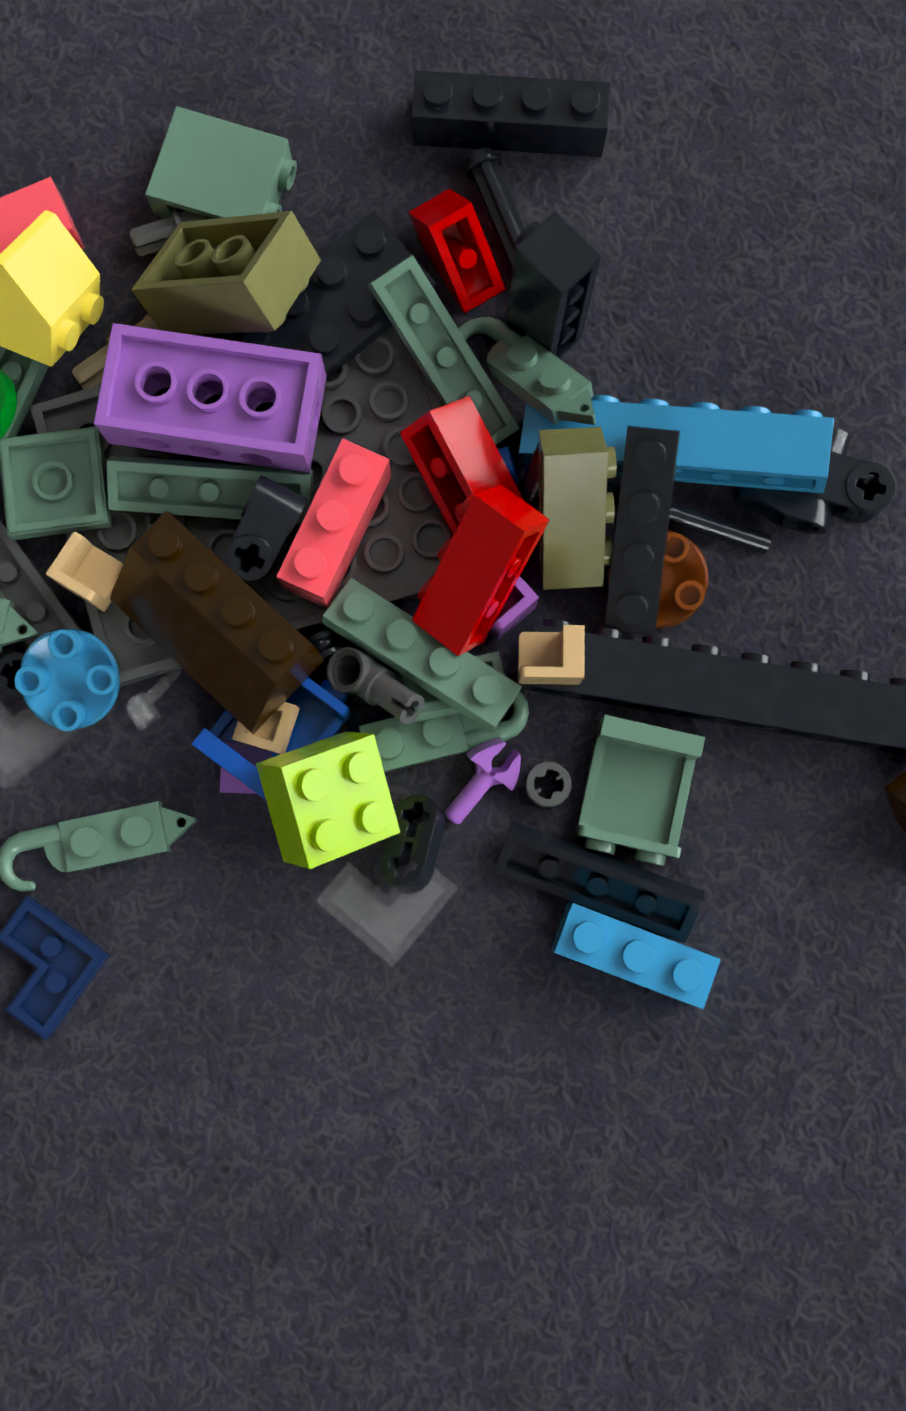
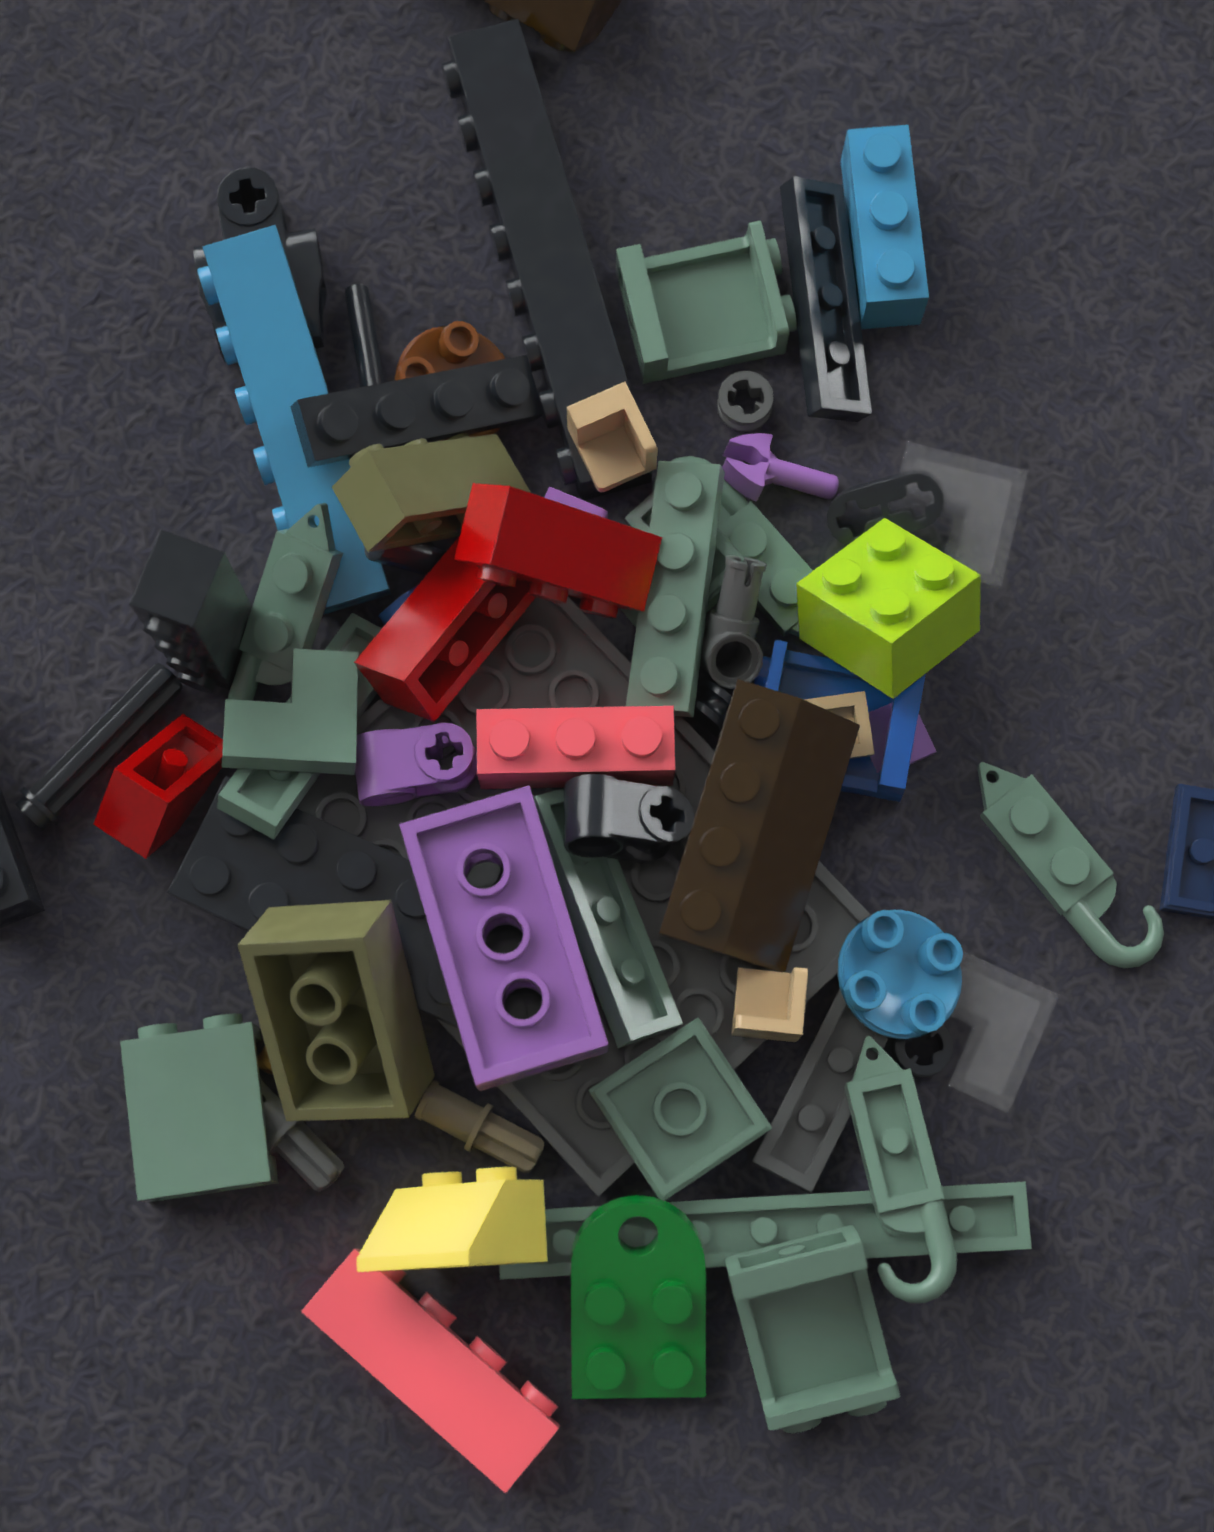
camera: 115 degrees left, 5 degrees down
(141, 707) = (887, 886): clear hand -> none
(383, 406) = (404, 764): none -> medium lavender piece
(432, 344) = (301, 736): none -> sand green tile

